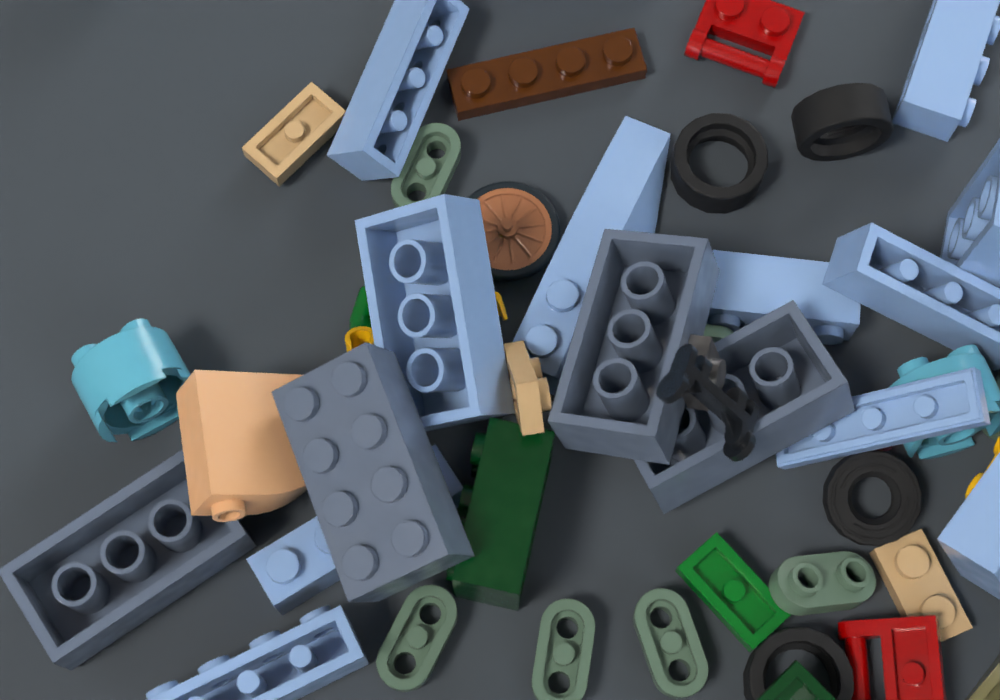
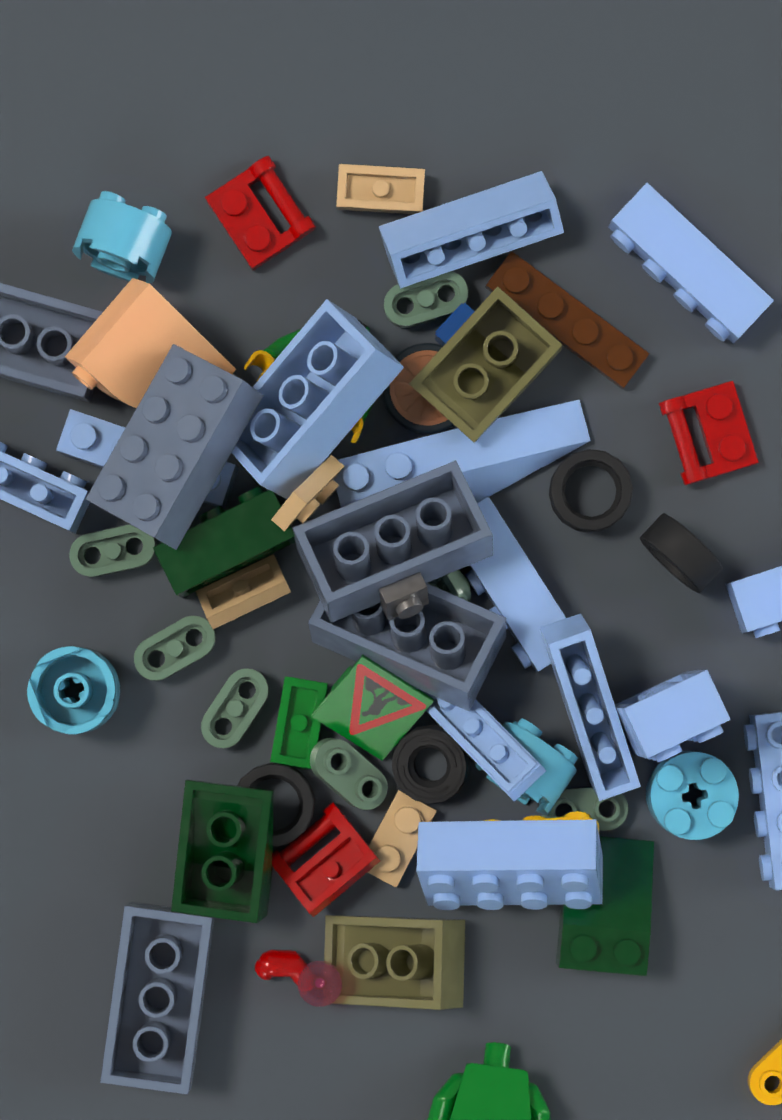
camera: 50 degrees right, 15 degrees up
(222, 269) = (248, 221): none -> red plate
(471, 160) = (453, 323): none -> blue tile
(533, 148) = (486, 364): none -> olive slope
(561, 543) = (243, 591): none -> tan plate
(691, 375) = (393, 638): black piece -> none
(774, 505) = (372, 707): none -> green piece

